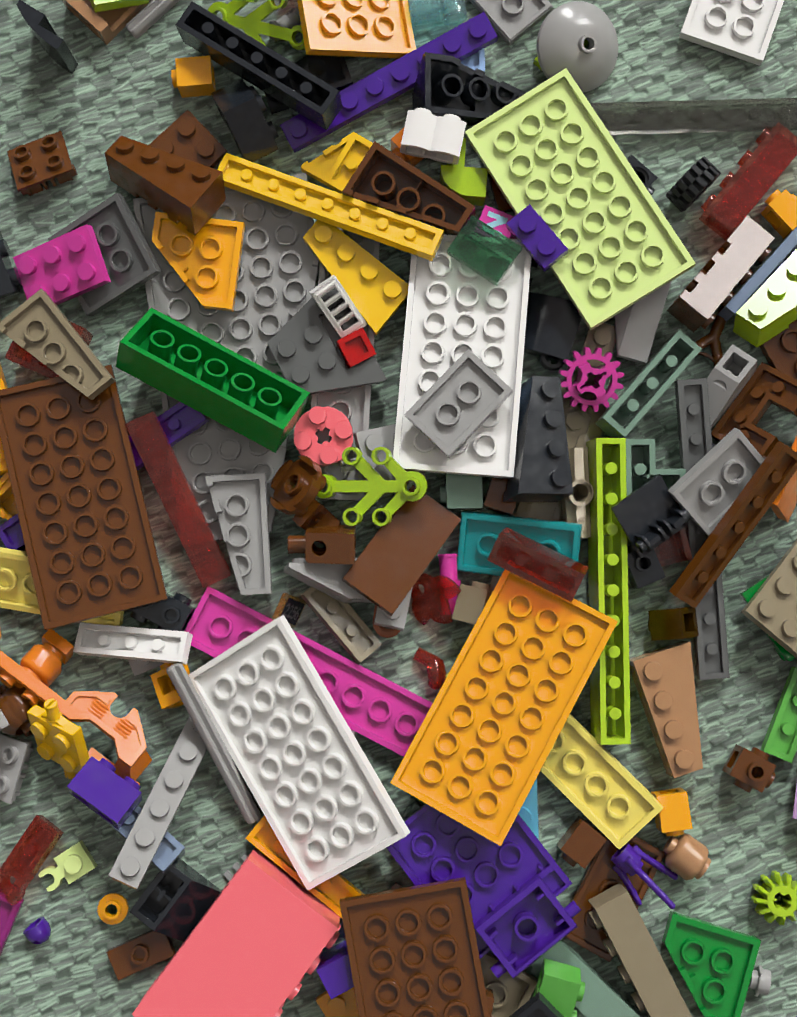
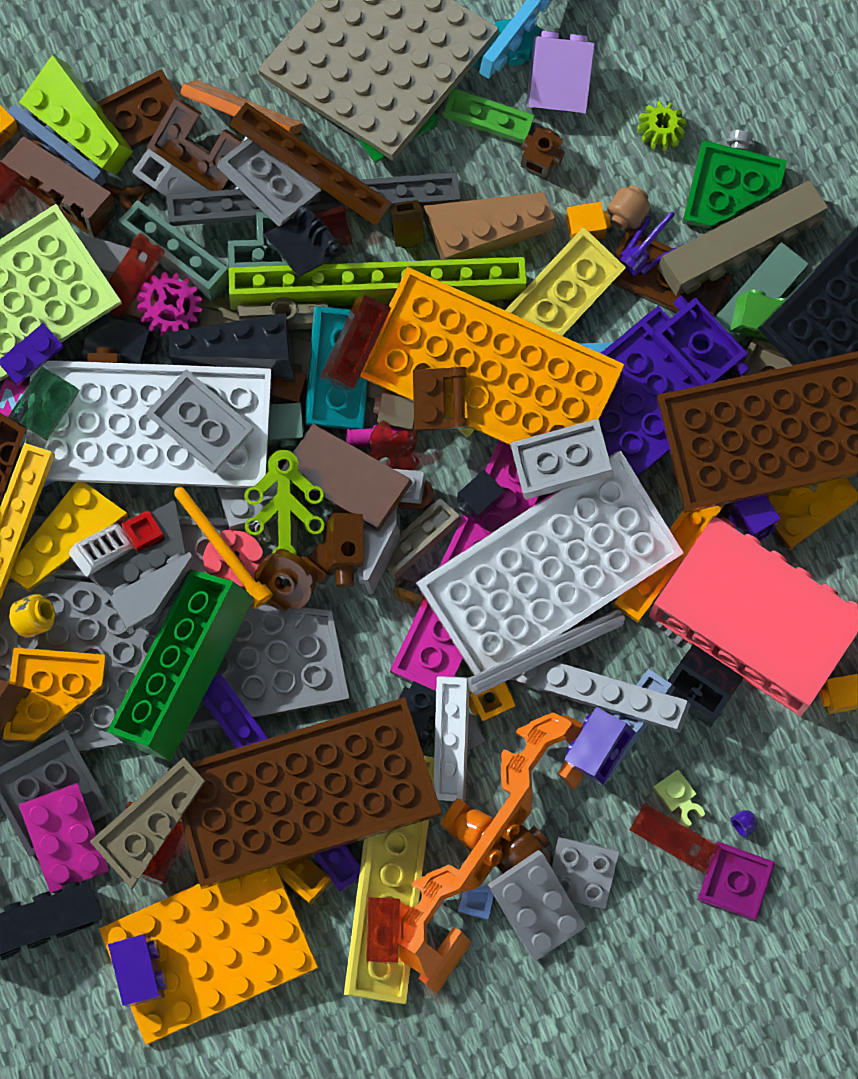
camera: 95 degrees left, 10 degrees down
(58, 738) = (551, 800): yellow plate -> none
(121, 905) = (713, 758): light orange plate -> none
(140, 953) = (758, 720): reddish brown plate -> none
(178, 499) = (302, 699): clear red plate -> none
(244, 522) = (327, 632): light grey wing -> none
(273, 239) = (32, 615): none -> yellow head
(279, 347) = (146, 598): none -> light grey slope
(286, 456) = (260, 592): none -> light orange piece
(376, 684) = (479, 496): none -> black brick
(399, 773) = (561, 459): none -> light grey plate
(434, 665) = (460, 447): clear red arm -> none
(476, 638) = (430, 399): none -> reddish brown plate
(535, 315) = (105, 355): none -> reddish brown plate
(580, 843) = (622, 304): reddish brown brick -> none
(624, 343) = (134, 272): none -> clear red plate
(643, 570) = (356, 250): black brick -> none

